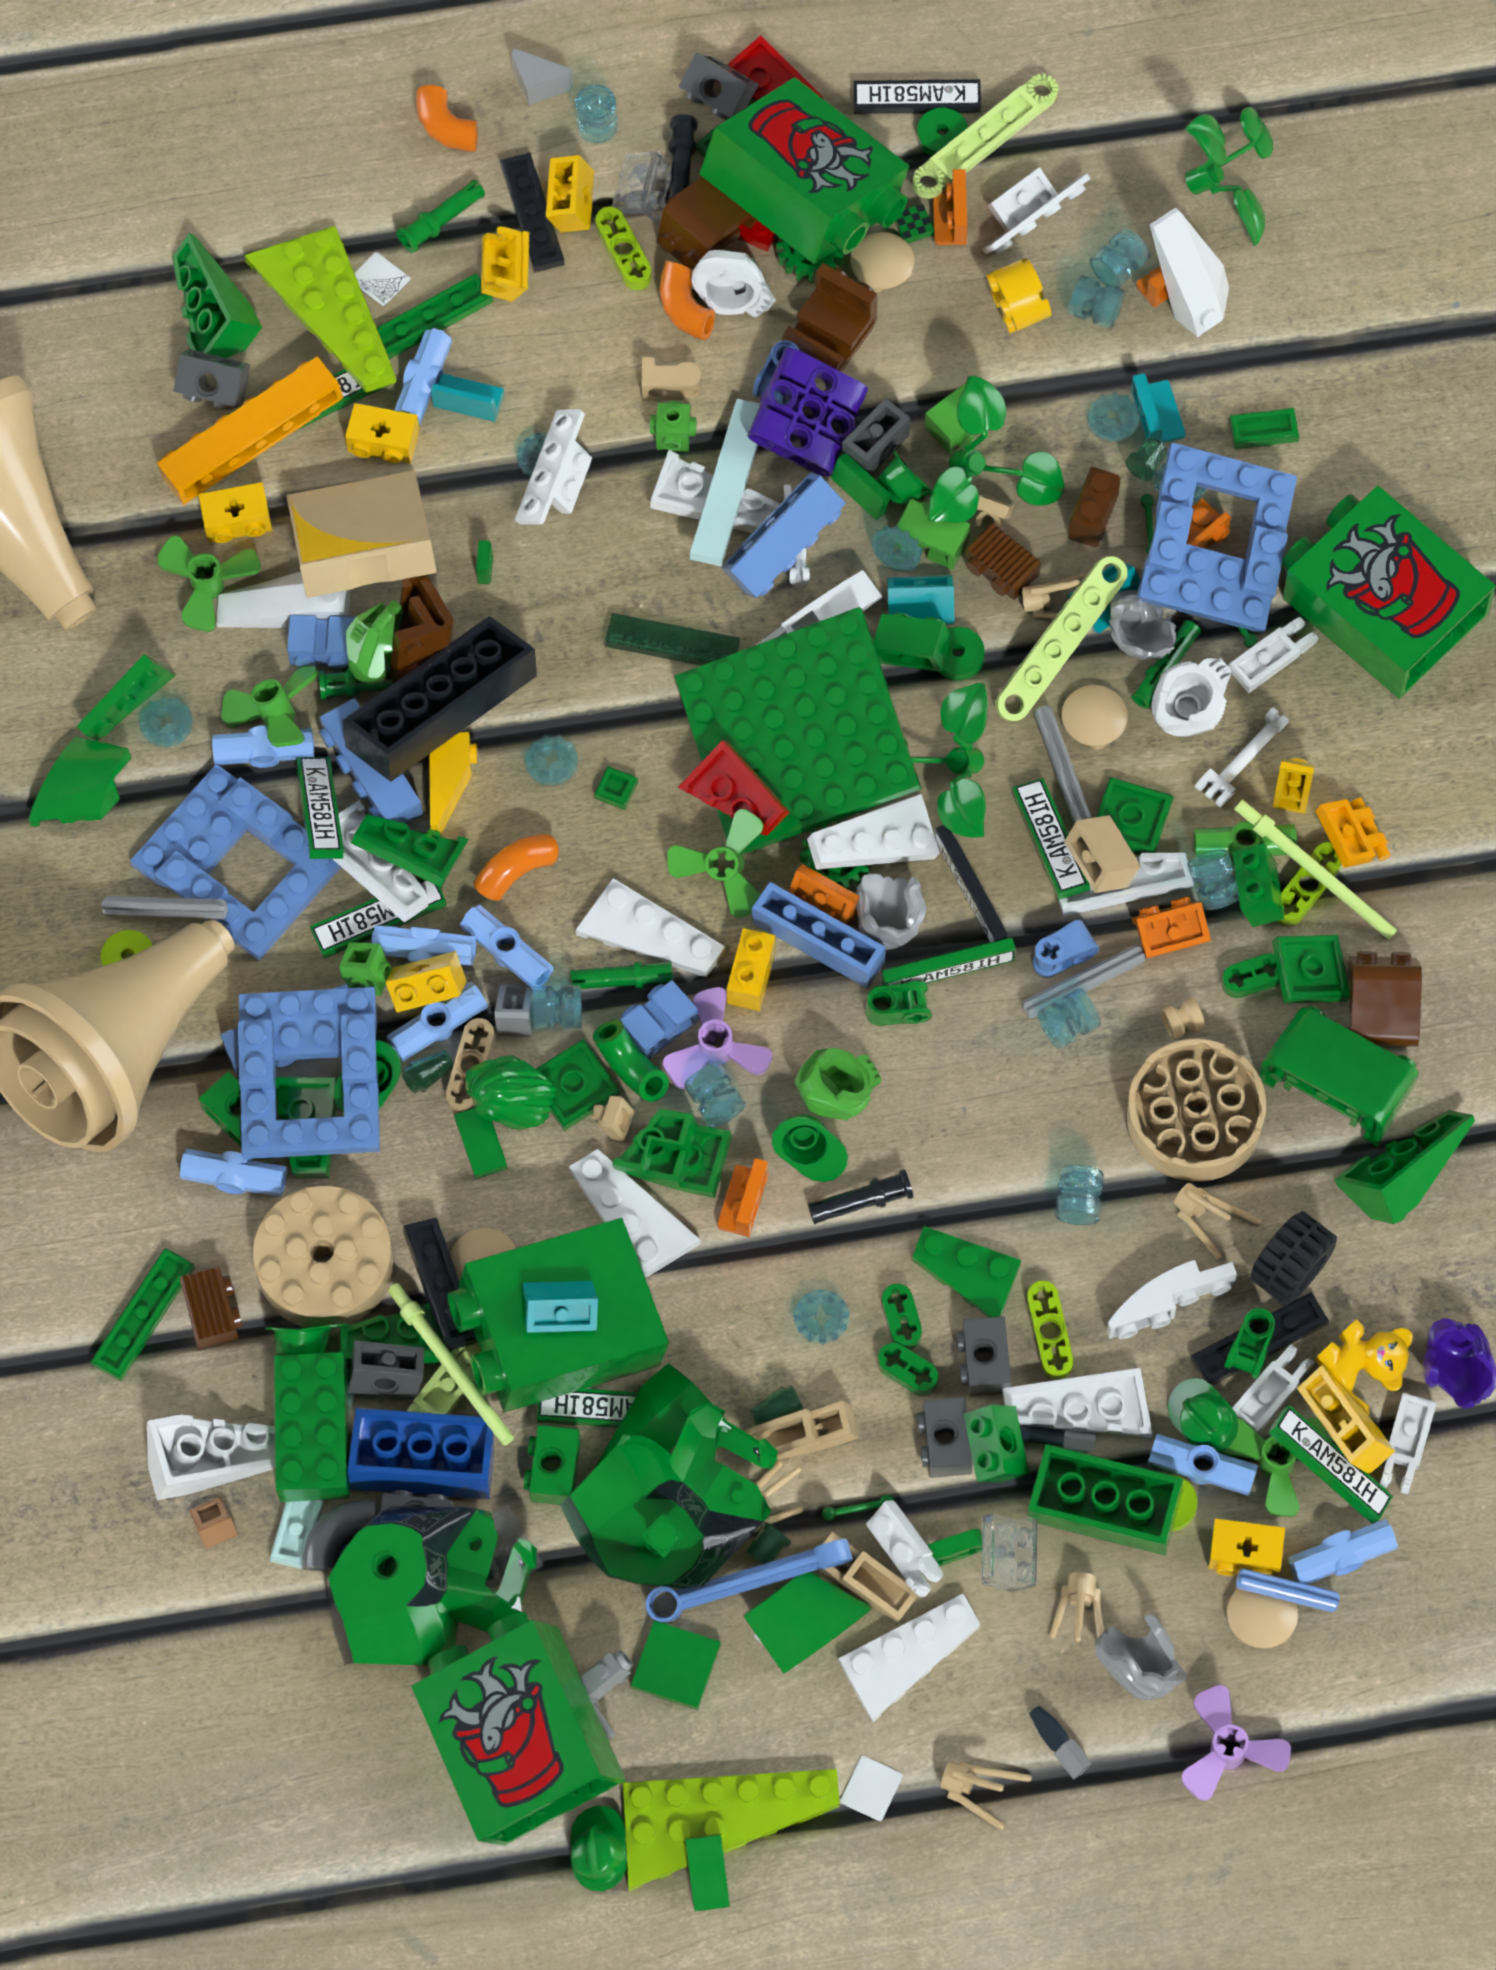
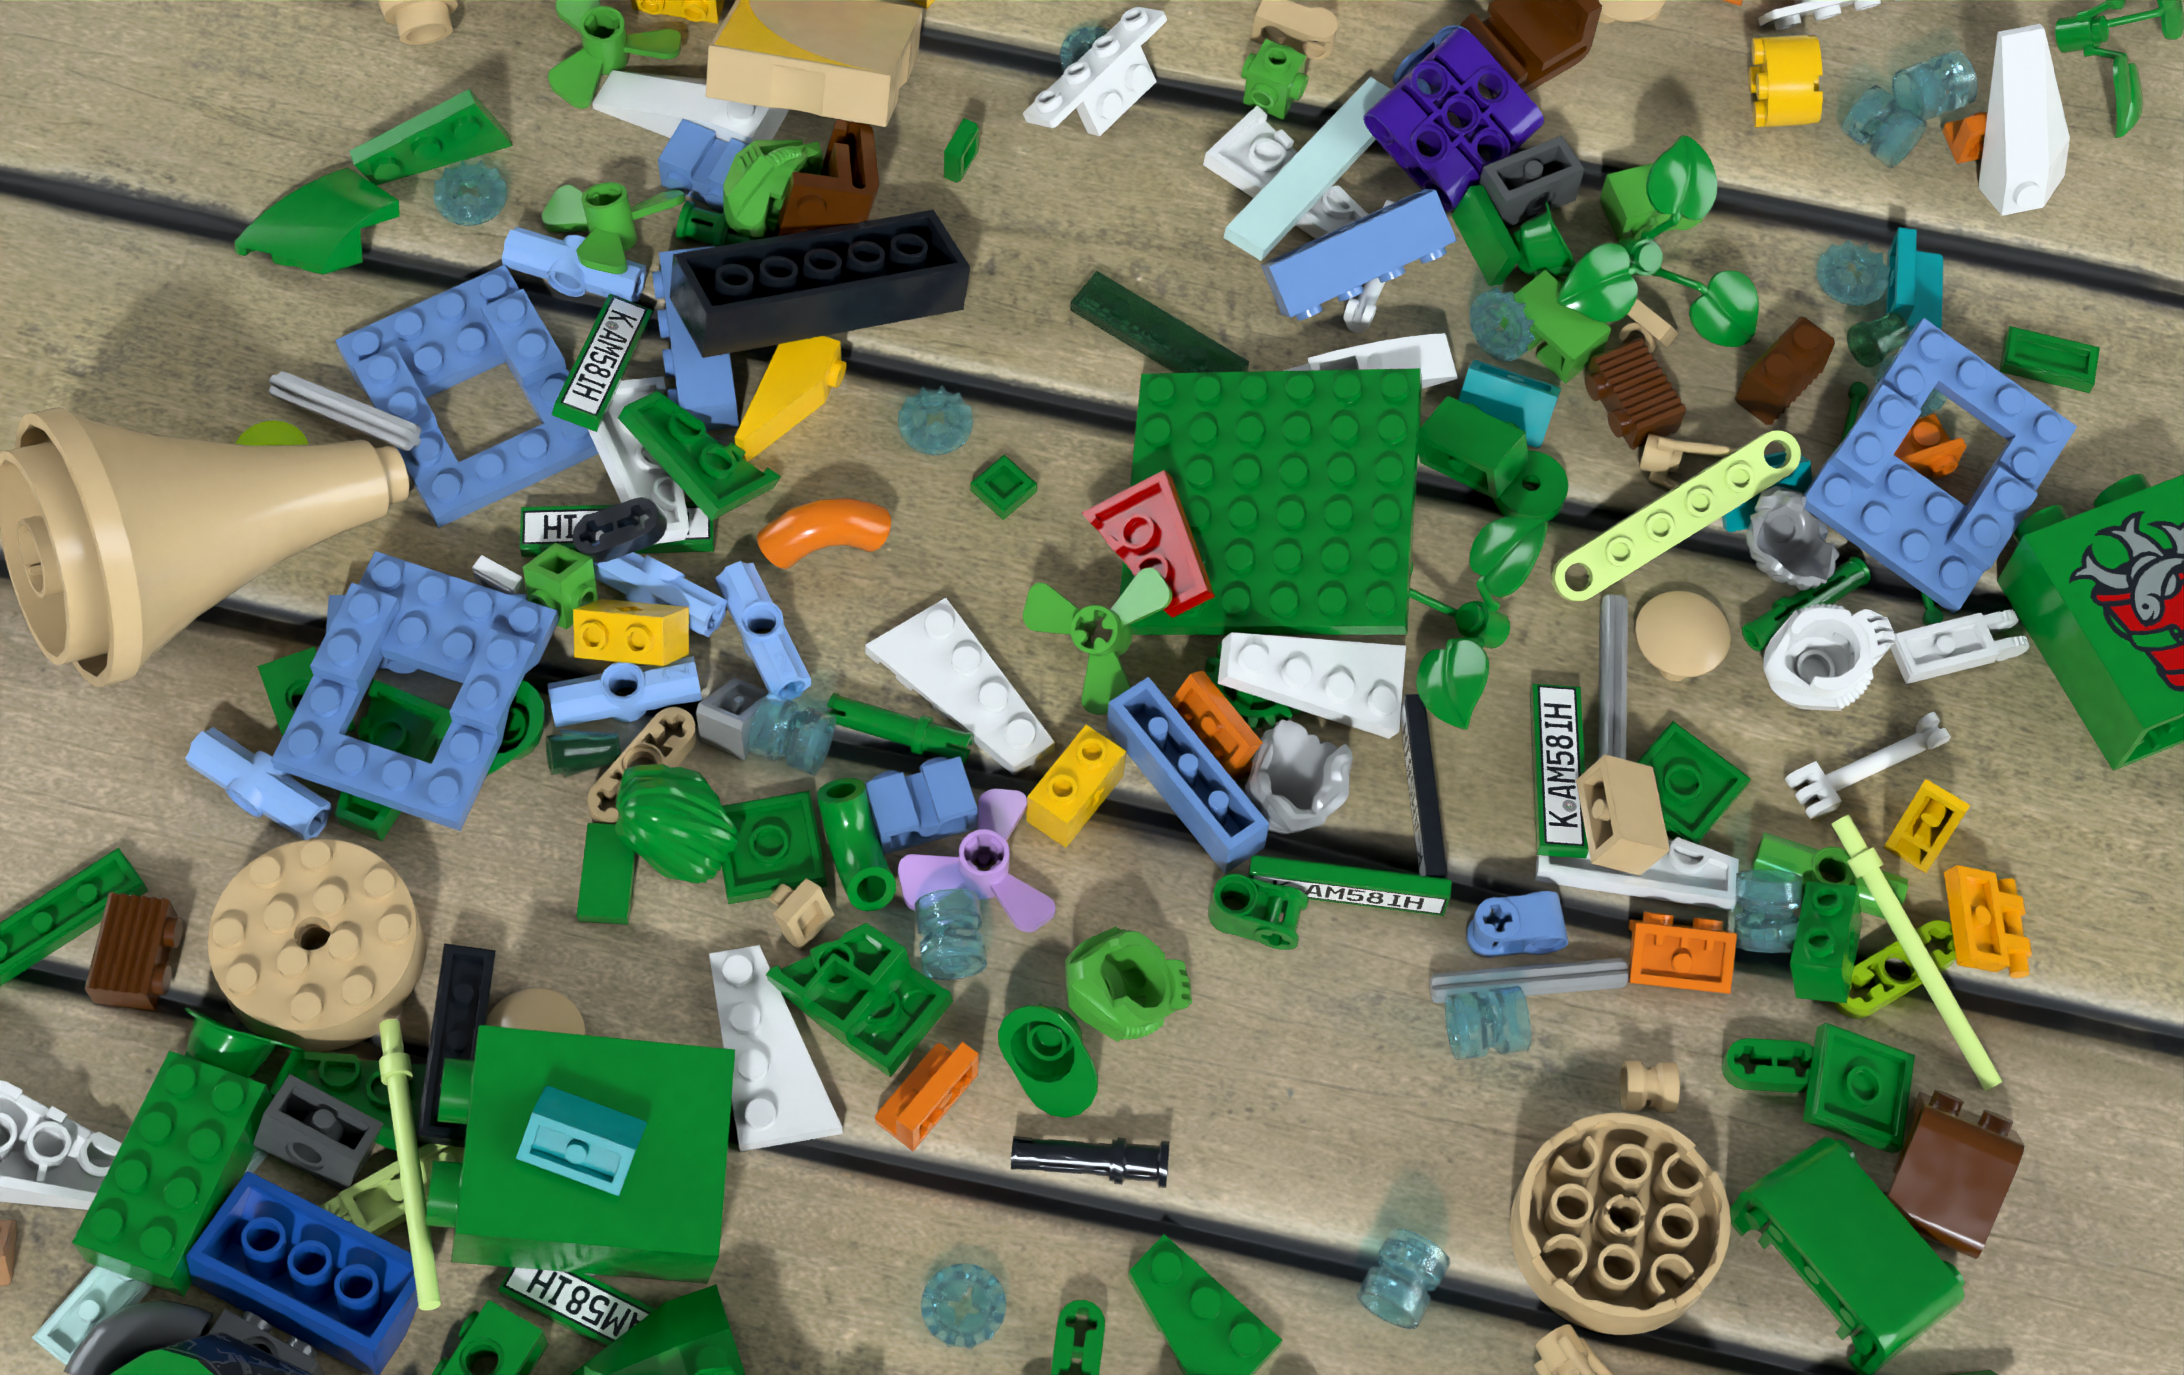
camera: 15 degrees right, 5 degrees down
(320, 980) = (496, 577): none -> white tile
(384, 912) = (620, 530): none -> black beam

